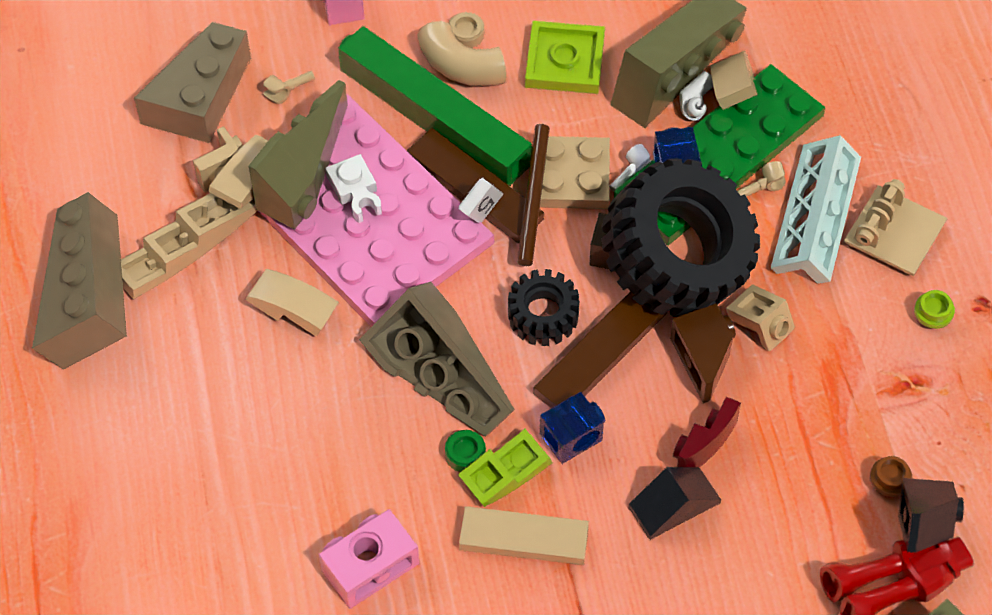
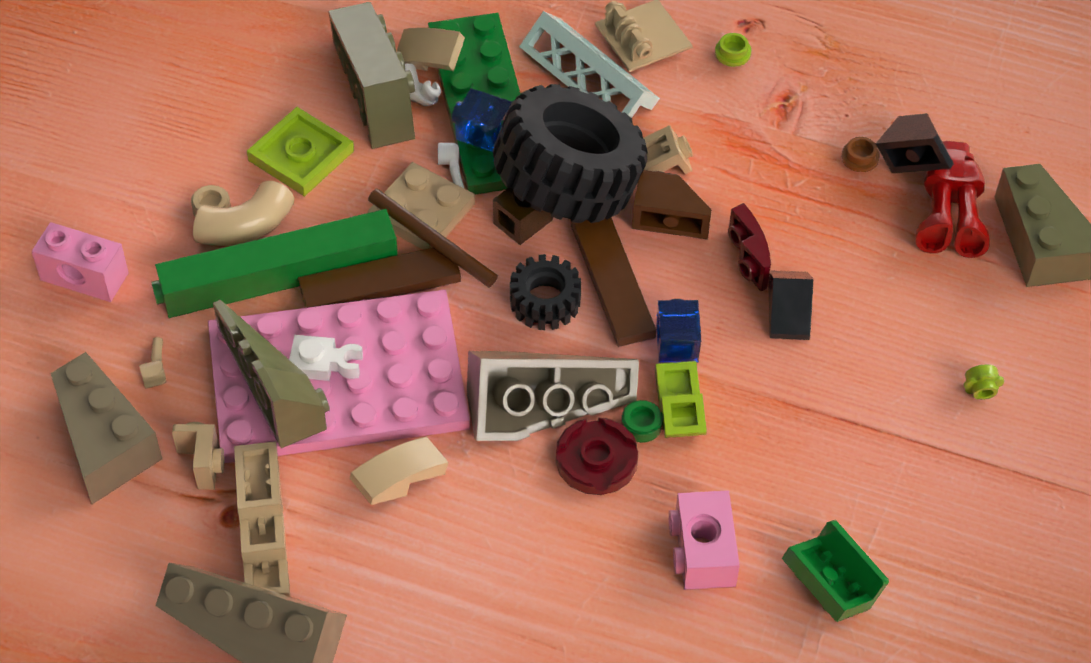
camera: 60 degrees left, 5 degrees down
(234, 180) = (244, 428): tan slope -> none
(407, 436) = (597, 456): none -> dark red tile
(480, 200) = (413, 273): white tile -> none
(524, 535) = (752, 420): tan tile -> none
(773, 179) = (534, 77): tan hand -> none

